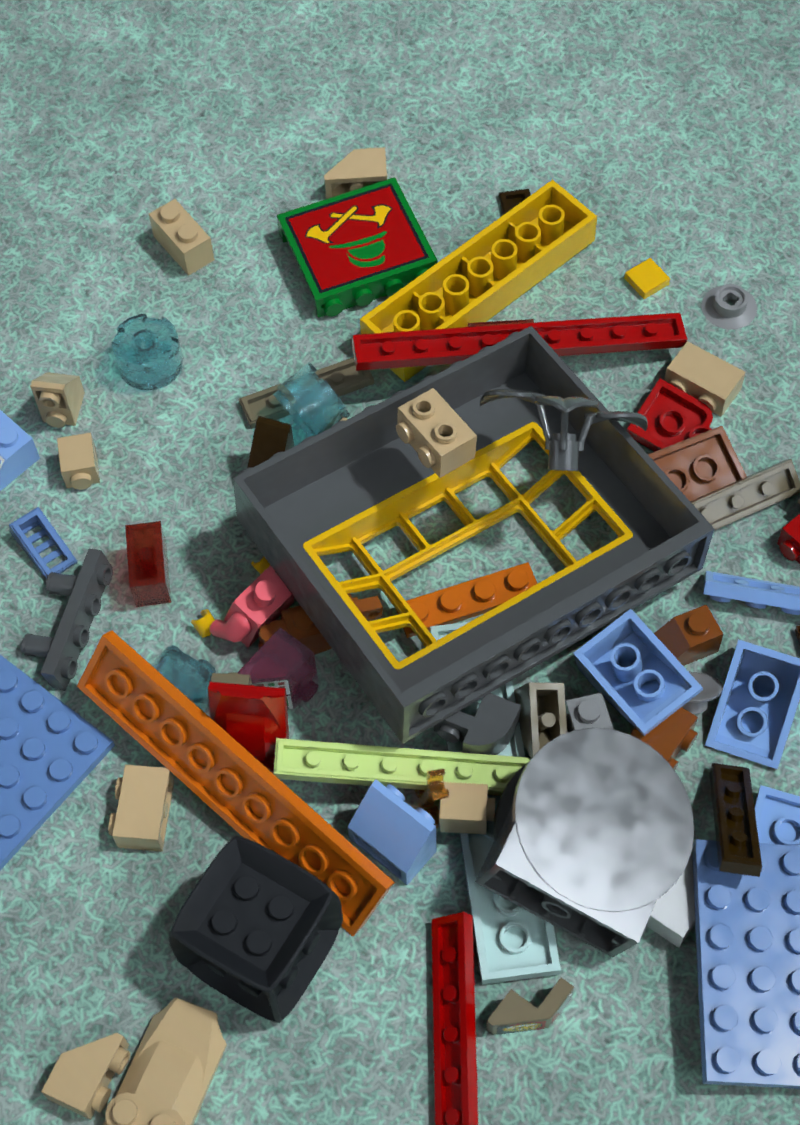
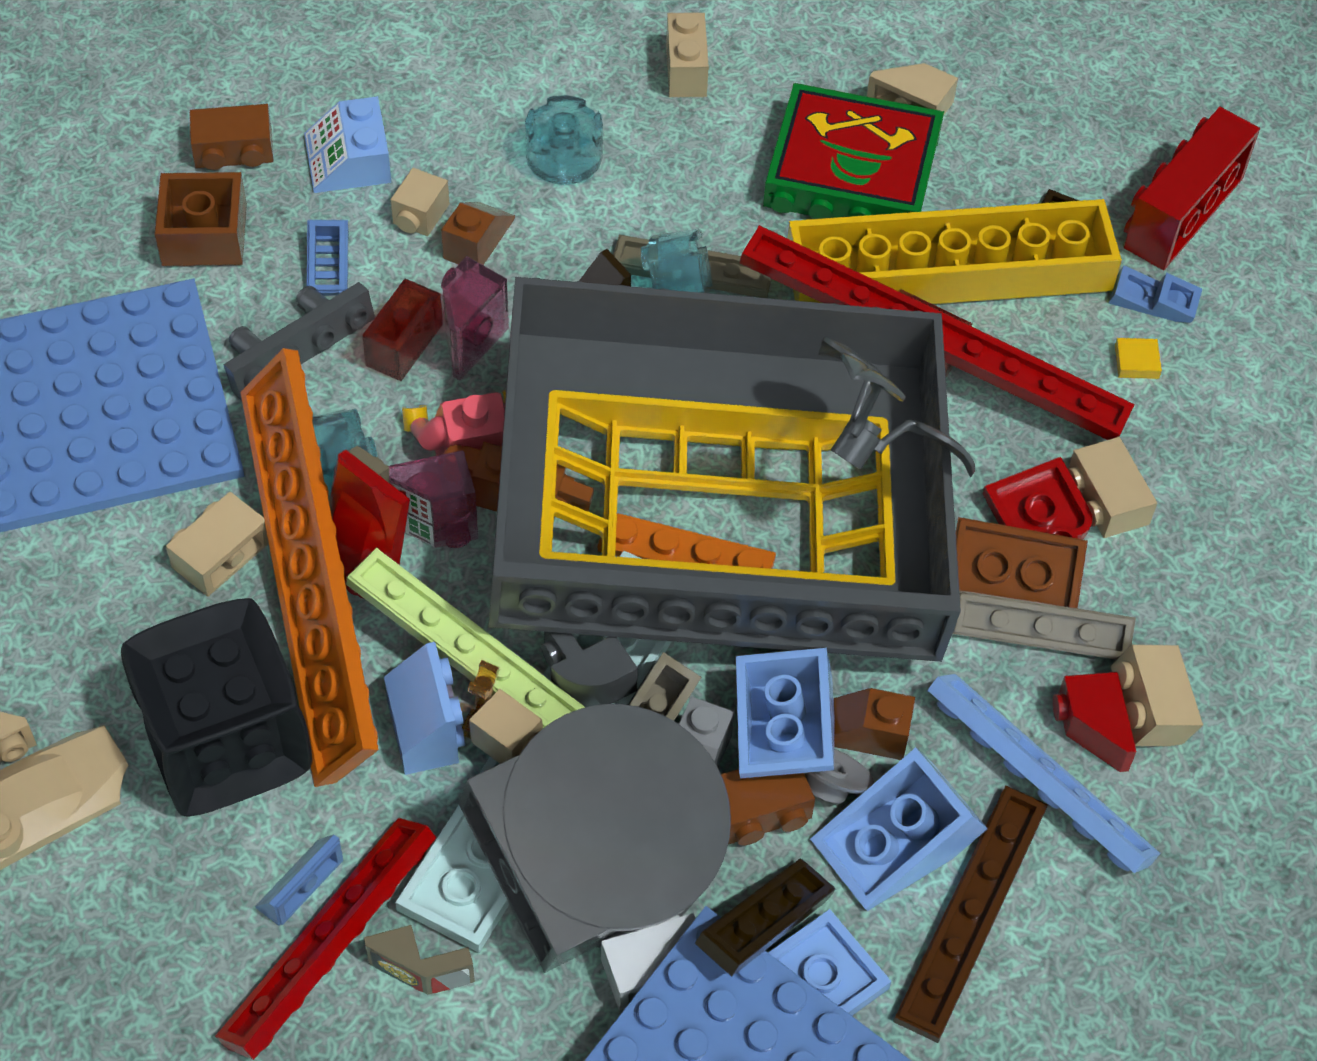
camera: 30 degrees right, 5 degrees down
(58, 398) = (446, 133): tan slope -> none
(137, 460) = (474, 231): none -> dark orange slope
(189, 521) = (473, 313): none -> clear pink slope
(399, 1009) = (301, 880): none -> medium blue slope
(436, 433) = (744, 348): tan brick -> none
(595, 138) = (1190, 187): none -> red brick
(630, 226) = (1167, 298): none -> medium blue slope
(725, 315) = (1207, 449): light grey piece -> none

